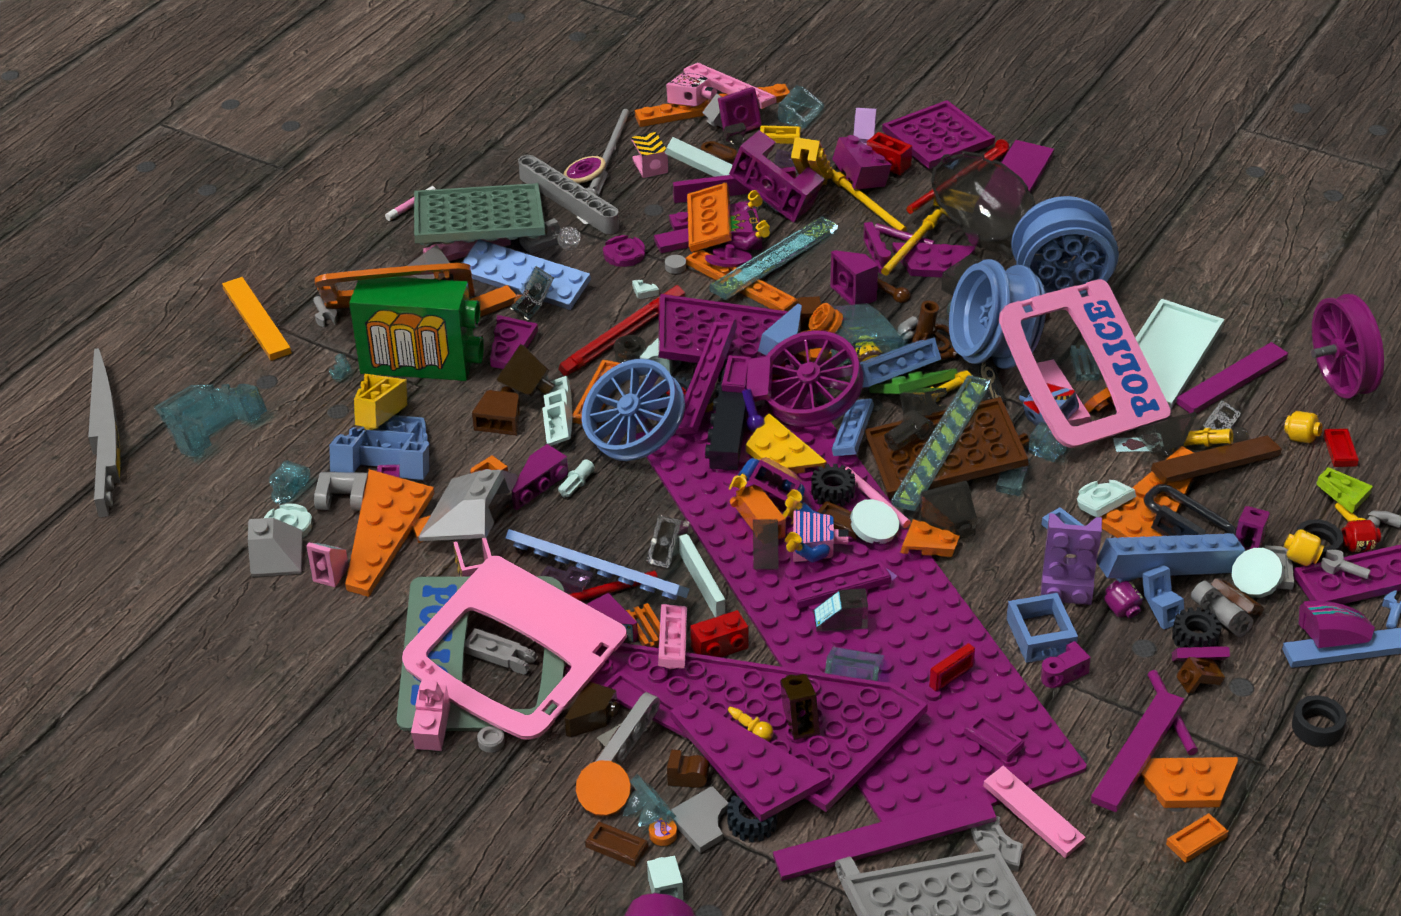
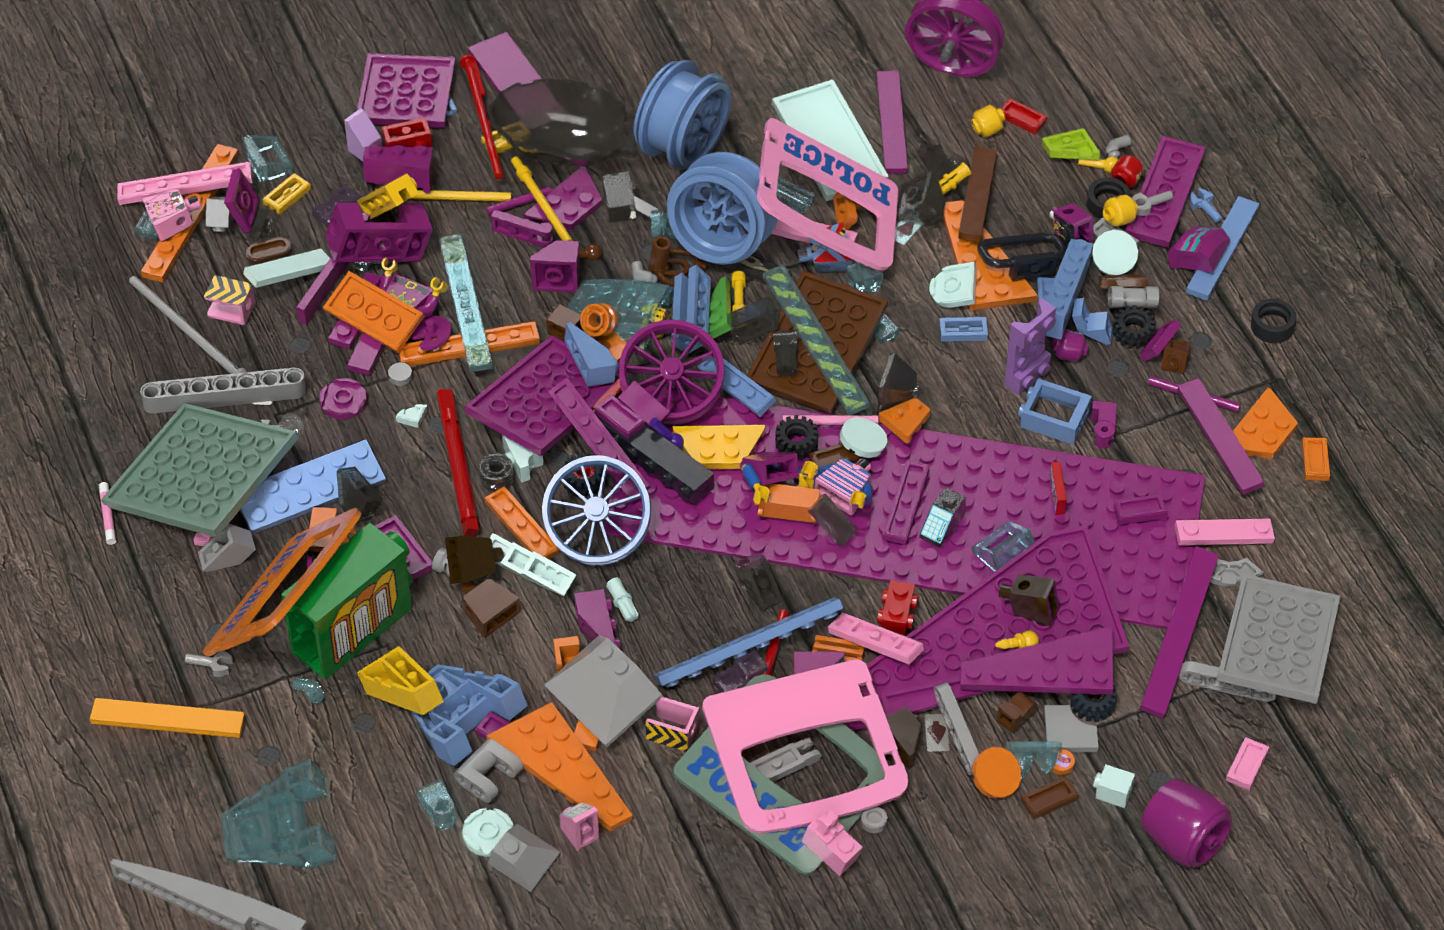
camera: 55 degrees left, 10 degrees up
(585, 169) = (188, 349): magenta wheel -> none
(701, 575) = (819, 583): light aqua tile -> none

